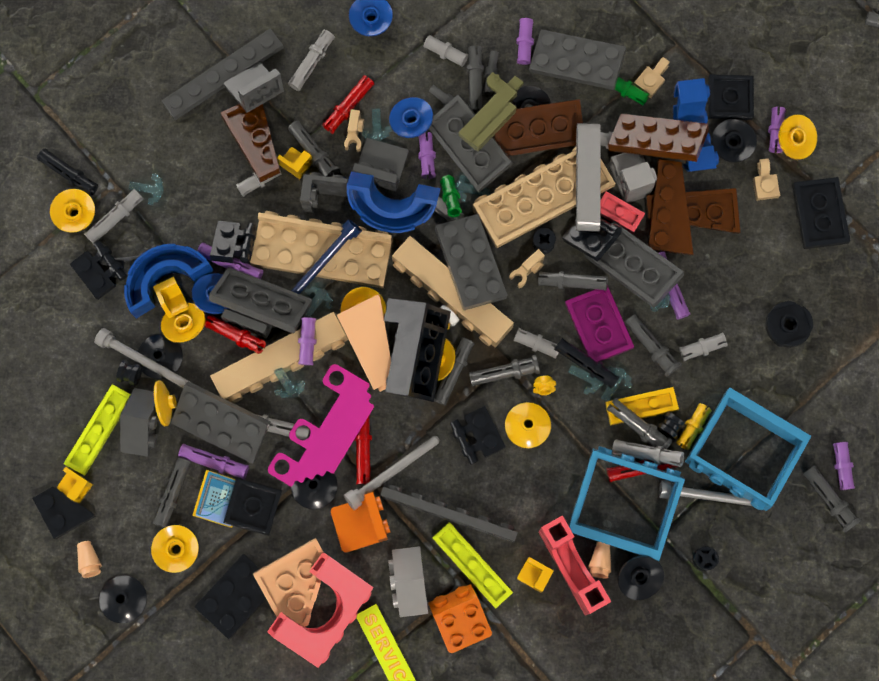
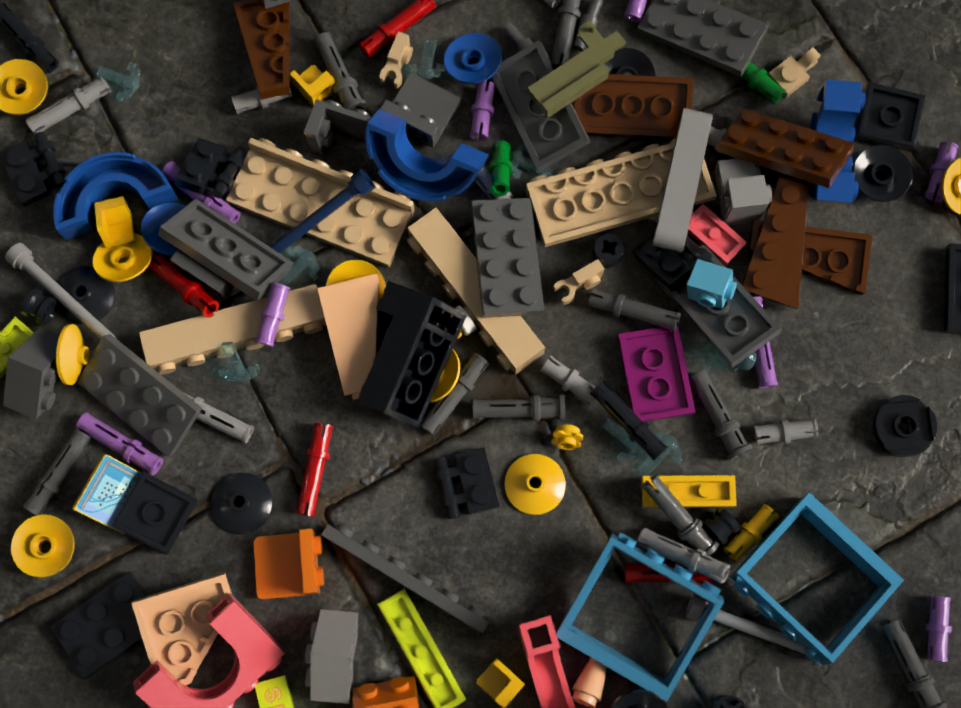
camera: 10 degrees right, 0 degrees up
(336, 434) = (277, 448): dark pink piece -> none
(357, 496) = (290, 530): light grey piece -> none
(625, 250) = (711, 284): none -> medium azure brick
(765, 185) = (912, 239): tan plate -> none

